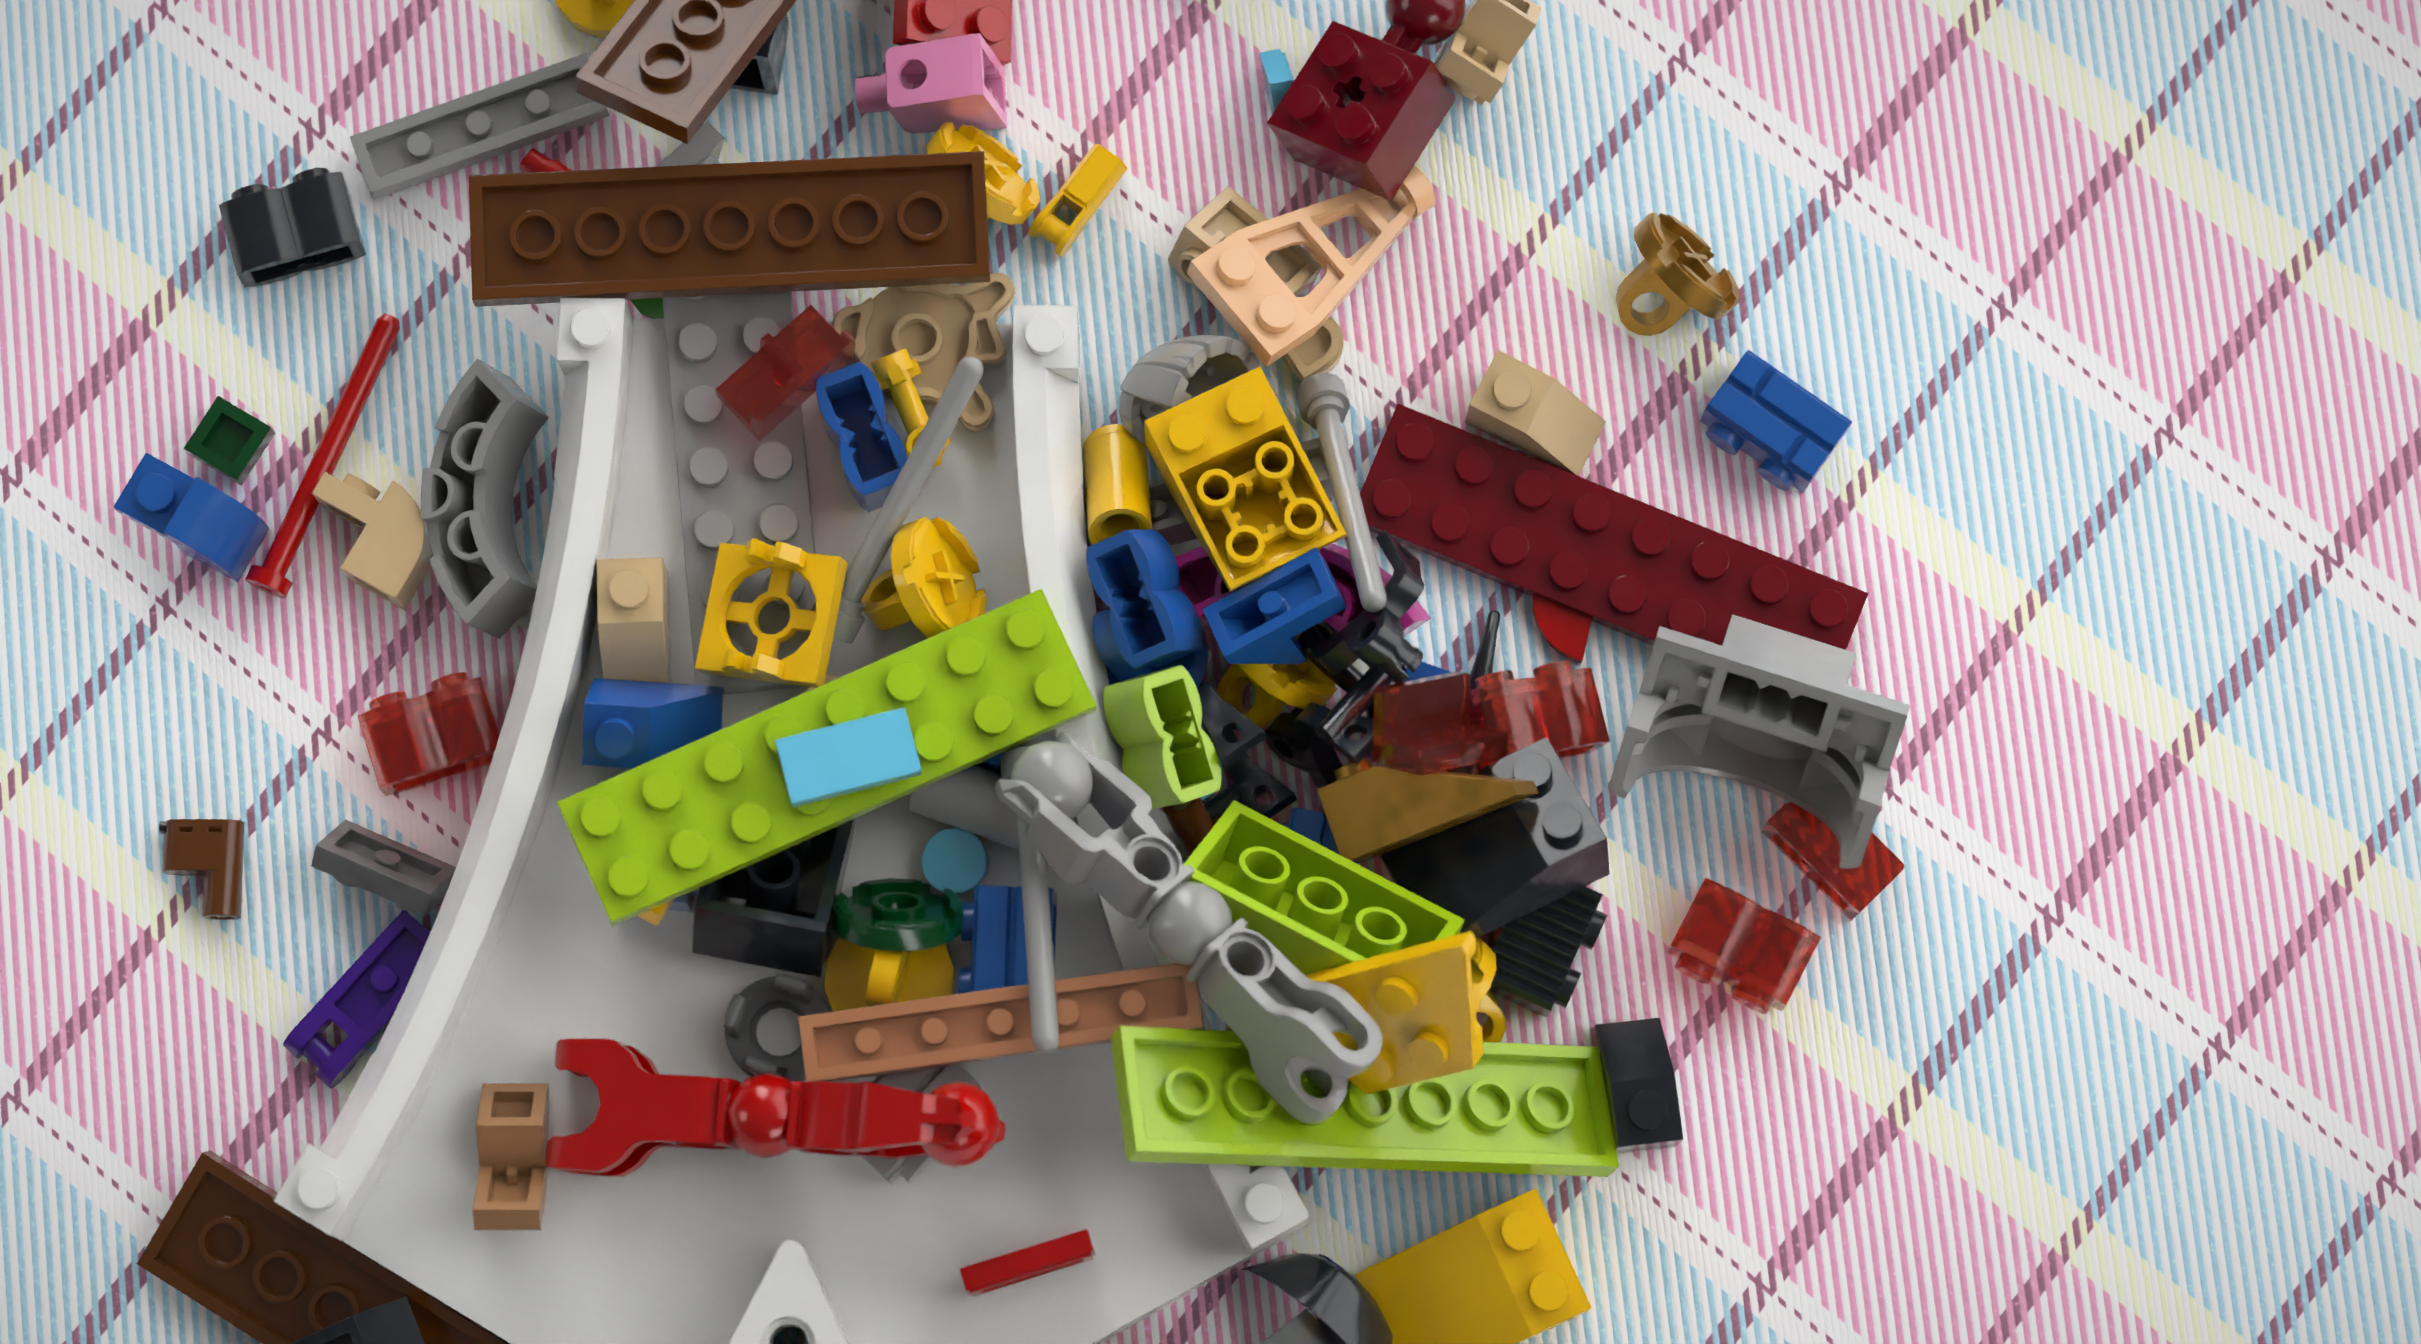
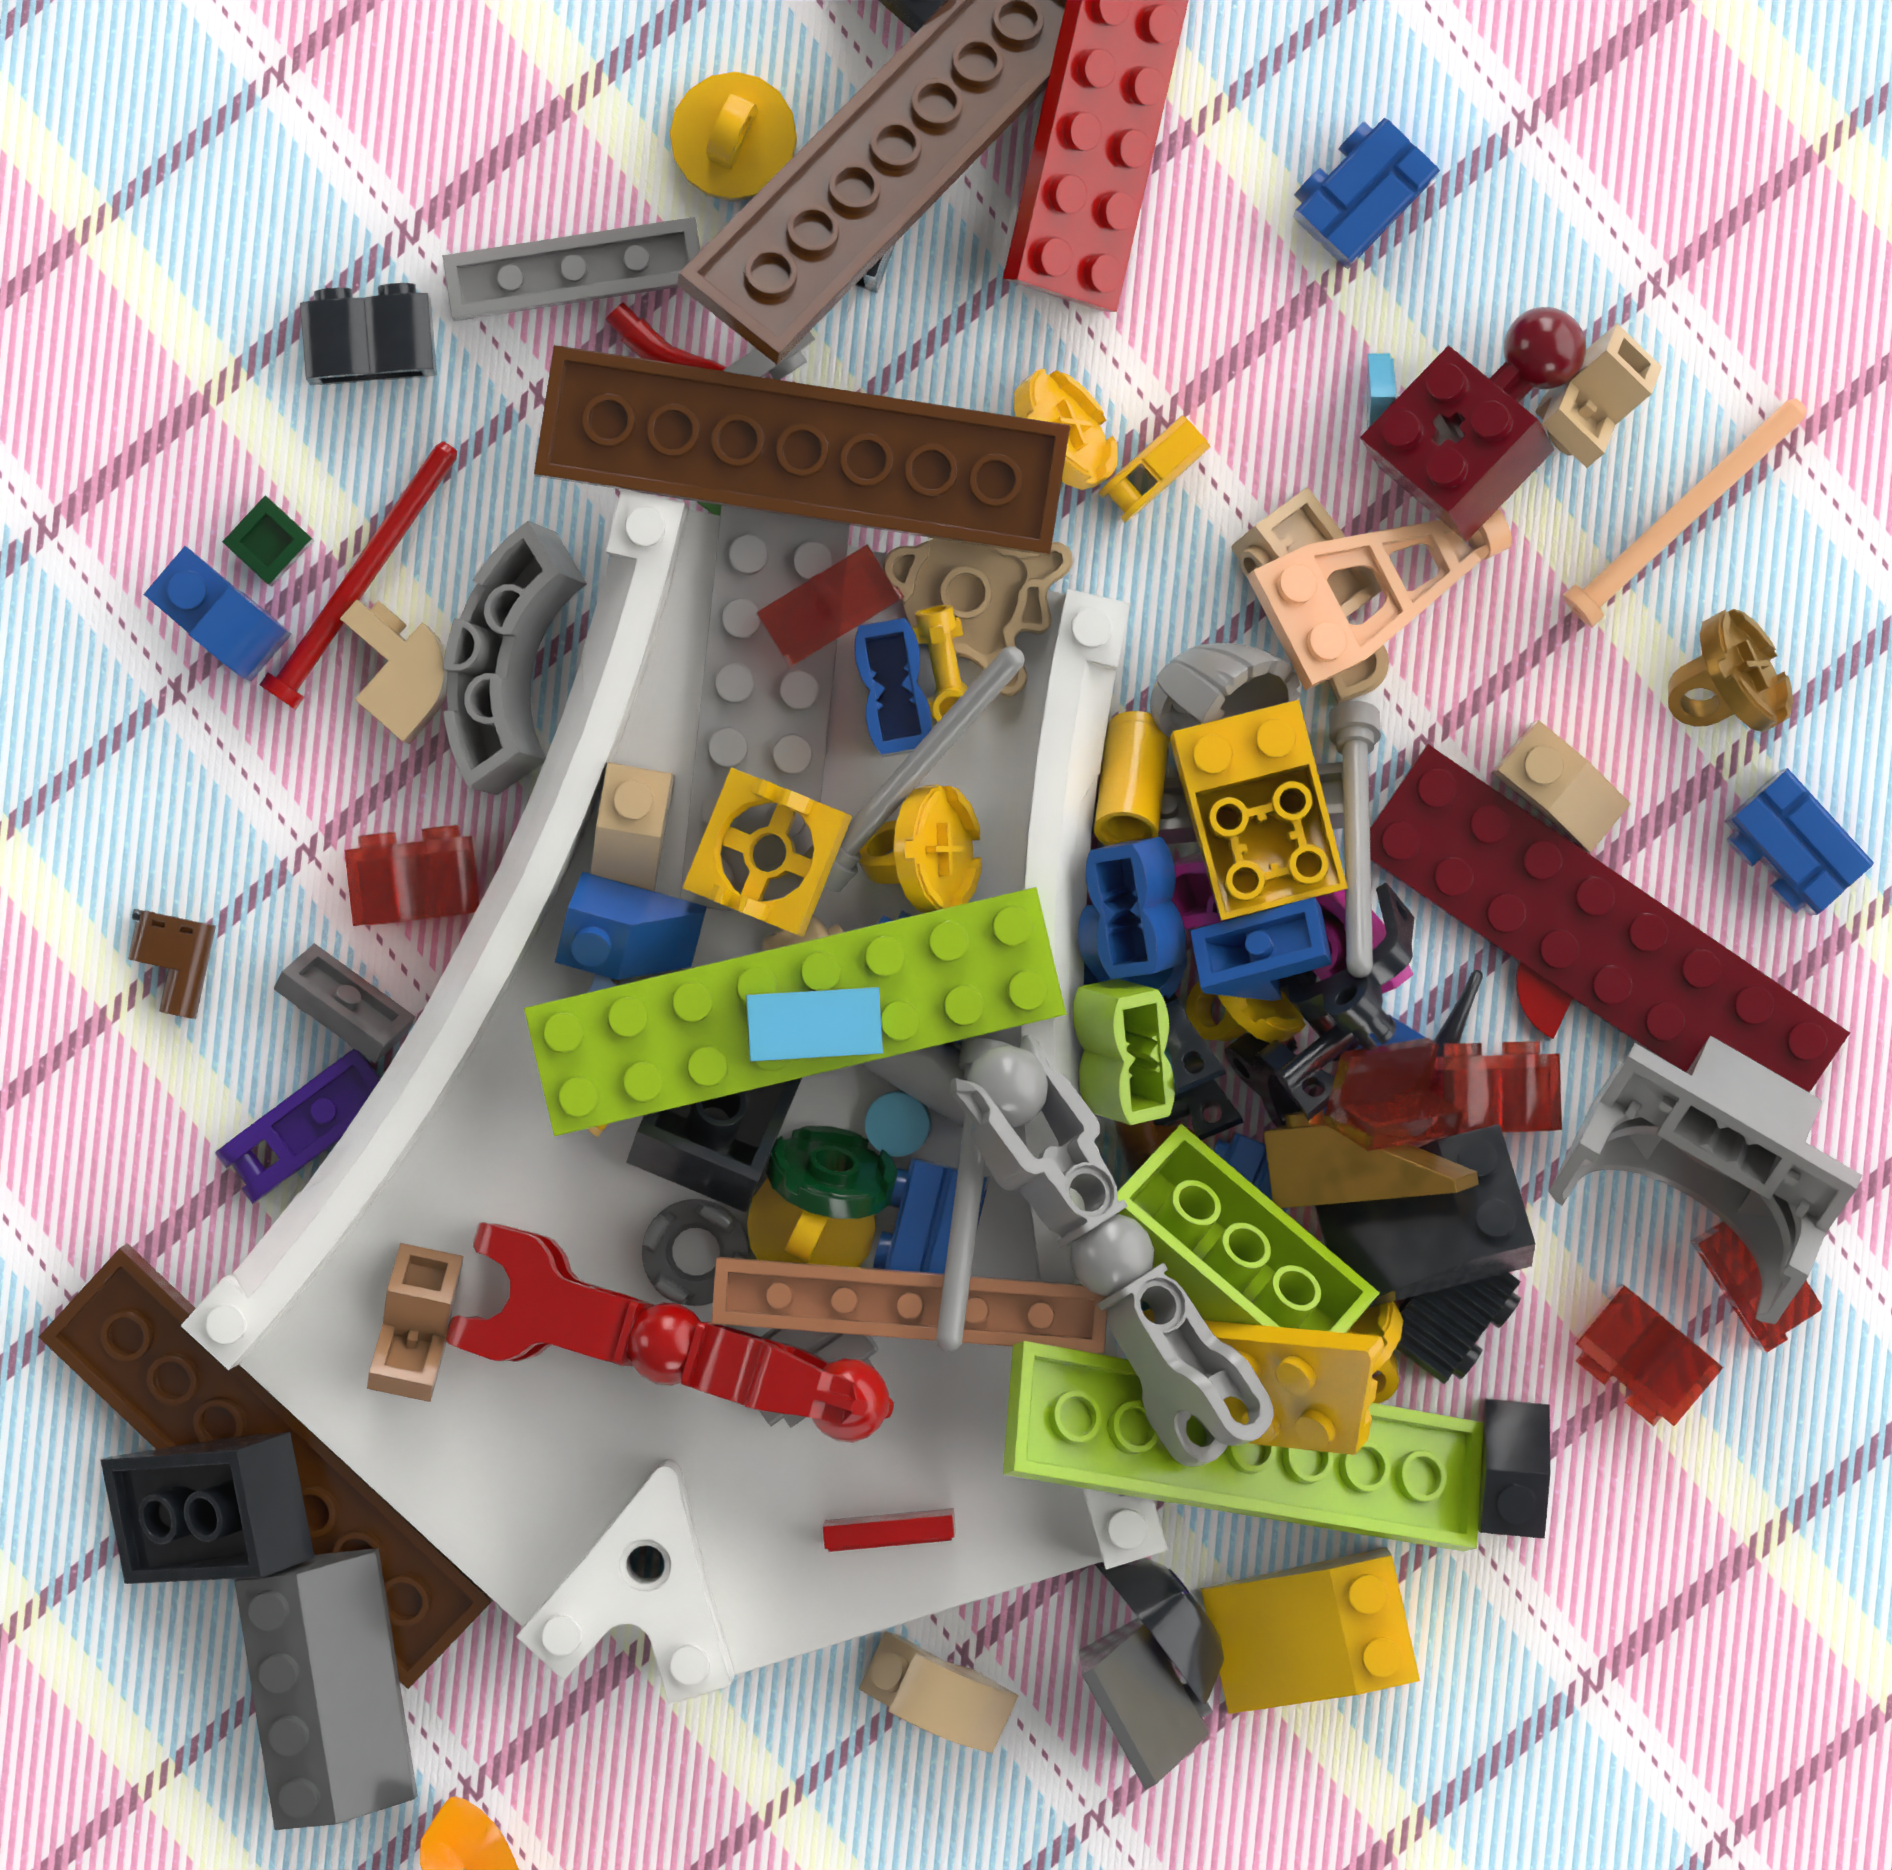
camera: 15 degrees right, 10 degrees up
(938, 84) = (1062, 334): bright pink torso -> none
(1520, 240) = (1588, 601): none -> light nougat bar

